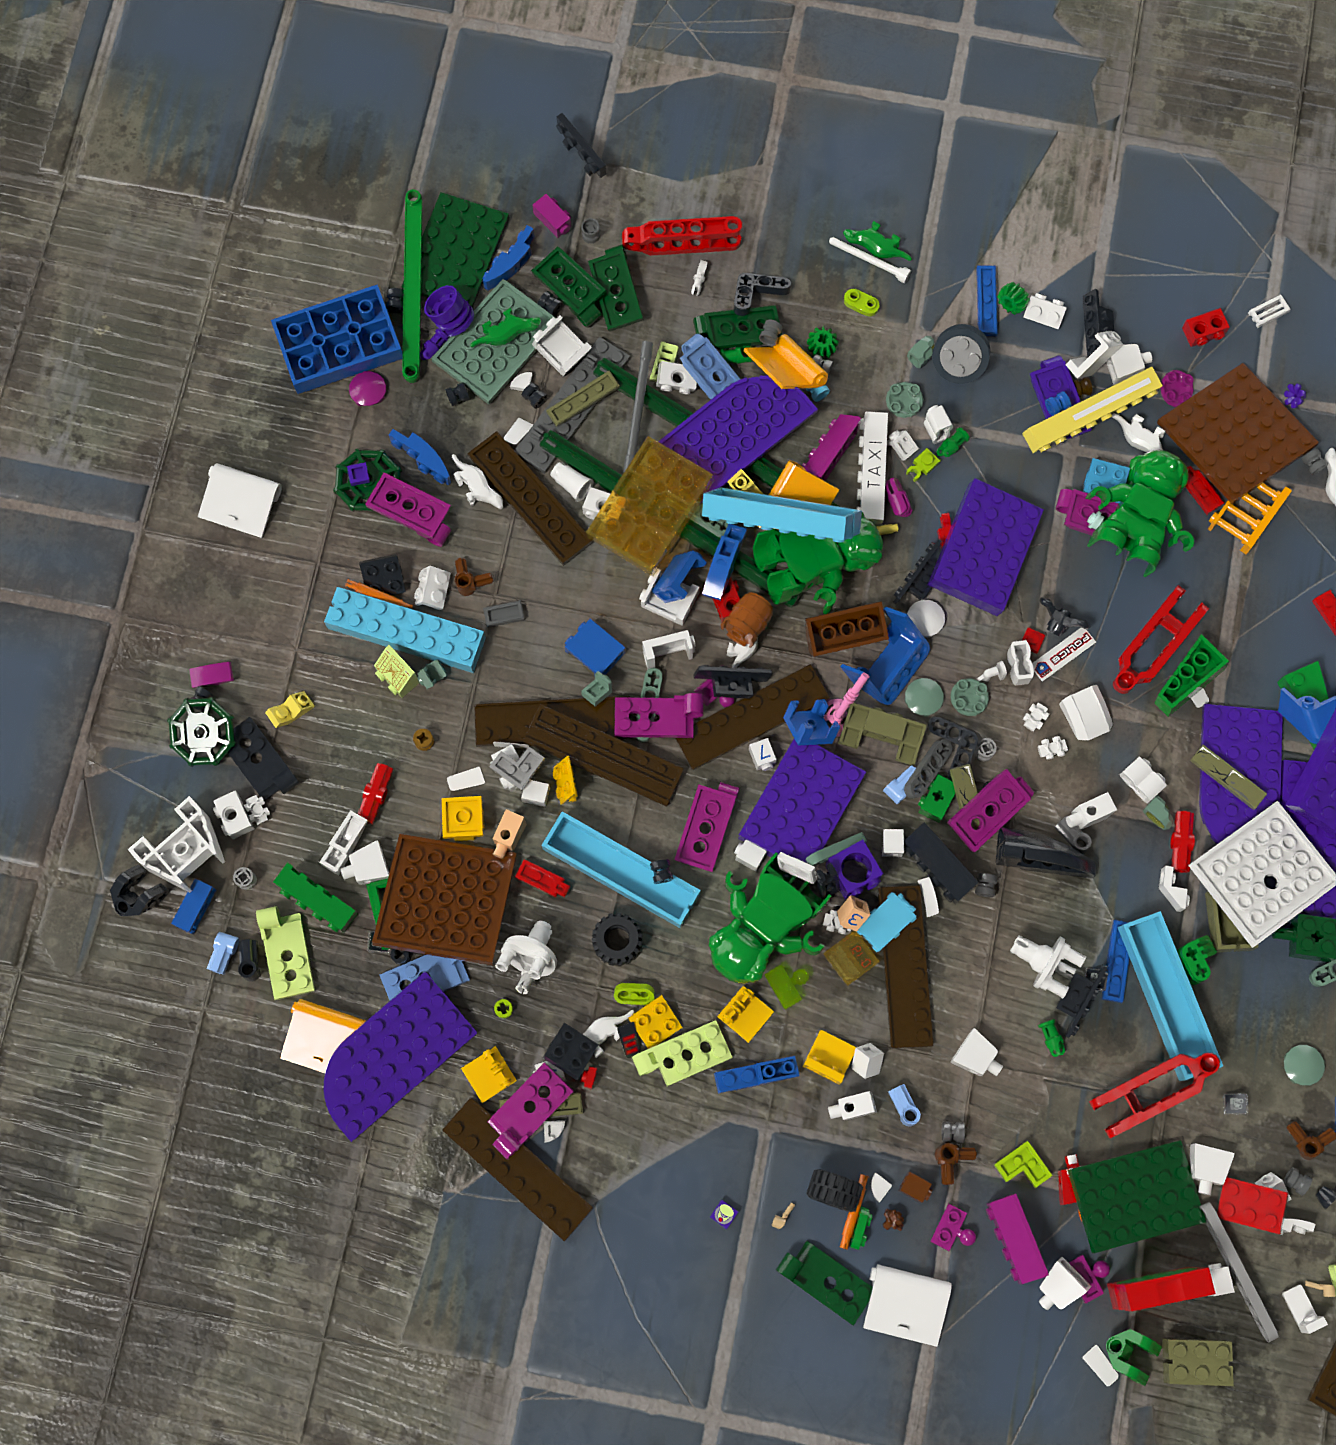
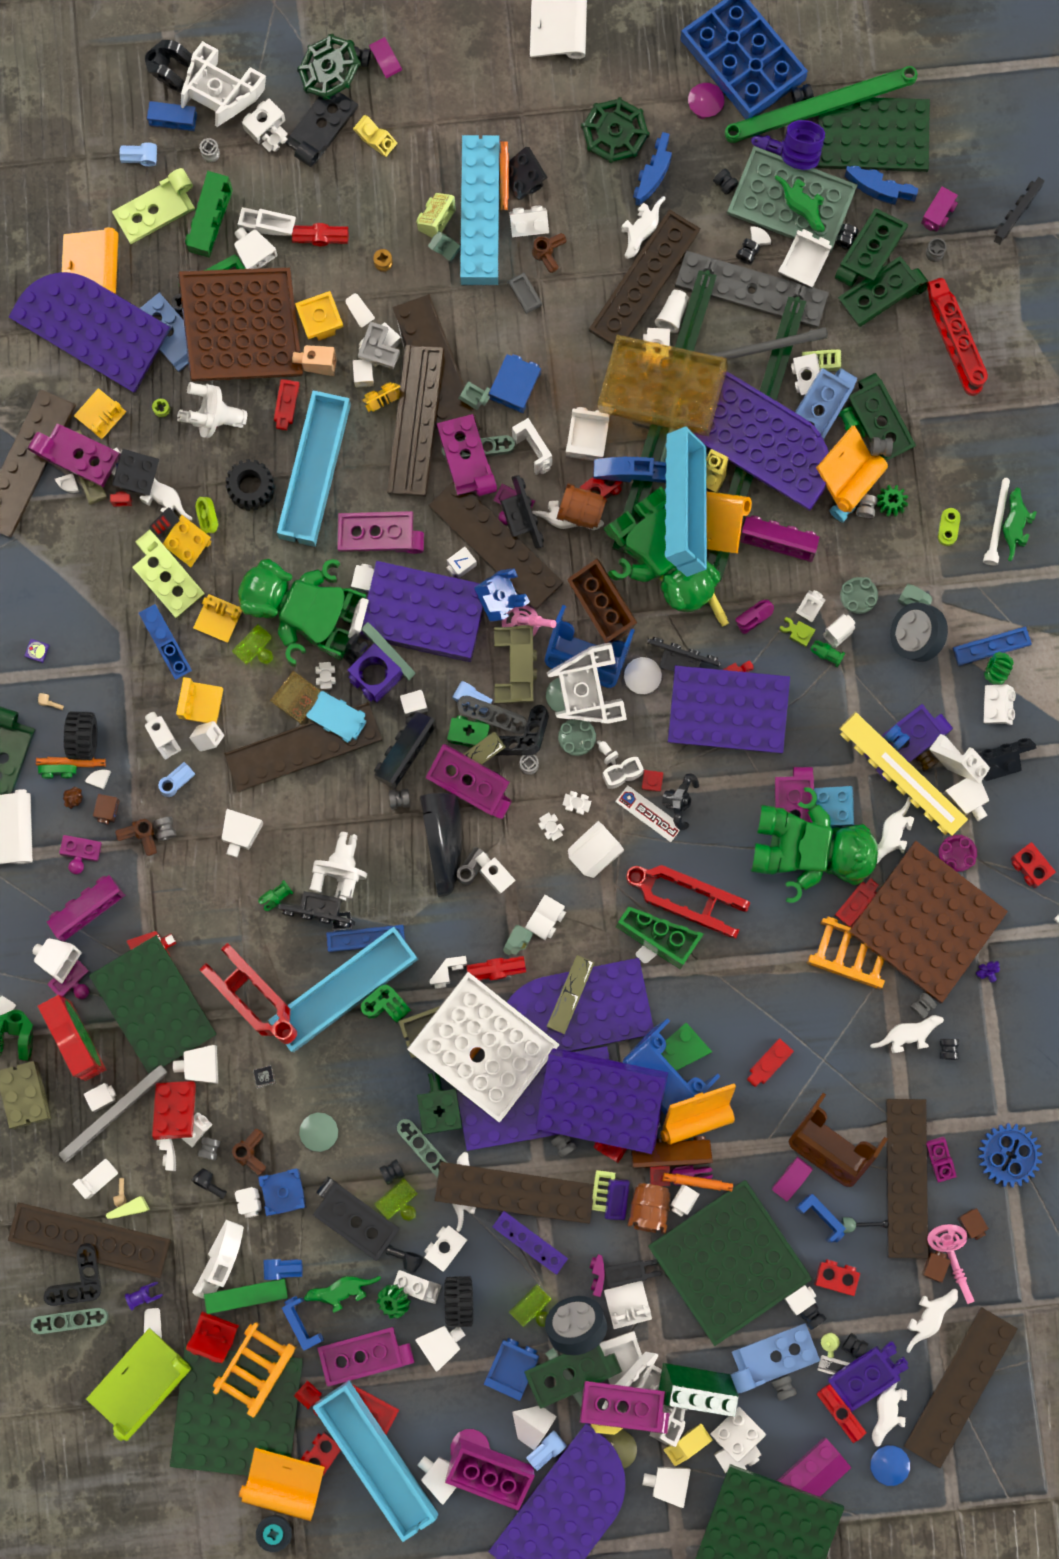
camera: 75 degrees right, 5 degrees up
(249, 958) = (140, 177): black piece -> none
(358, 474) = (614, 118): dark purple plate -> none
(424, 517) = (594, 190): magenta hinge -> none
(518, 431) = (707, 248): white sticker -> none
(582, 398) = (756, 295): olive tile -> none
(661, 871) = (314, 503): black wheel -> none
(668, 585) = (606, 430): blue panel -> none
(699, 277) = (935, 365): white piece -> none
(753, 285) = (930, 418): black beam -> none
(853, 913) = (333, 682): light nougat brick -> none
(872, 466) = (776, 584): white brick -> none
(927, 672) = (582, 687): none -> white wedge
(929, 896) = (373, 751): white sticker -> none
(1026, 1160) = (158, 900): lime plate -> none
(1095, 520) = (786, 803): light aqua plate -> none

